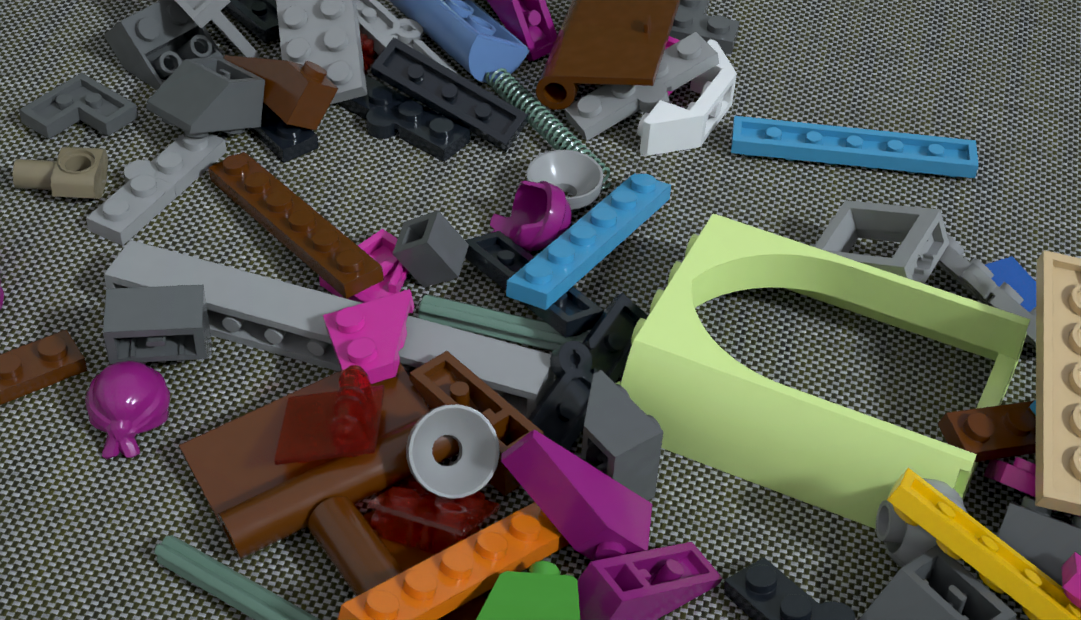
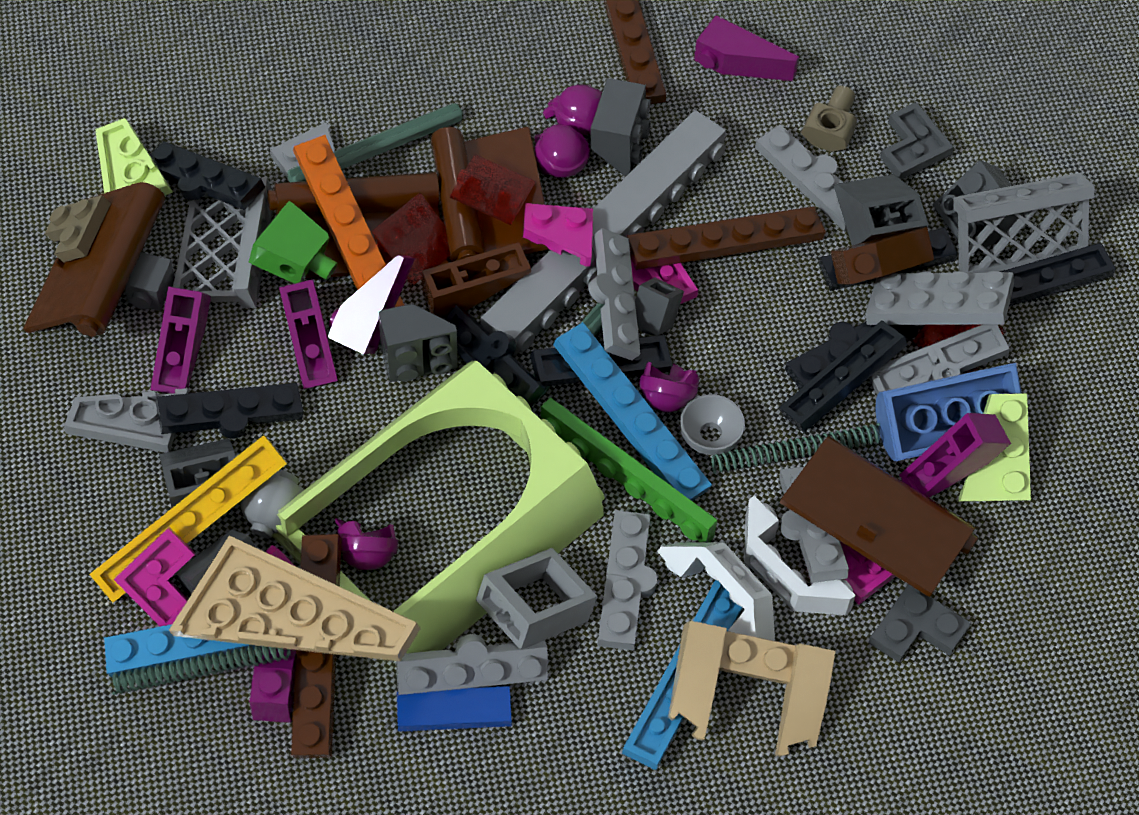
camera: 110 degrees right, 15 degrees up
(205, 401) = (561, 151): none -> magenta hat
(424, 271) = (616, 290): none -> light grey hinge
(476, 457) = (433, 237): light grey piece -> none
(668, 223) = (635, 477): none -> bright green plate
(734, 153) = (732, 573): none -> white slope
(787, 214) = (625, 580): none -> light grey hinge
(826, 75) = (712, 648): none -> tan wedge
(913, 406) = (369, 549): none -> magenta hat

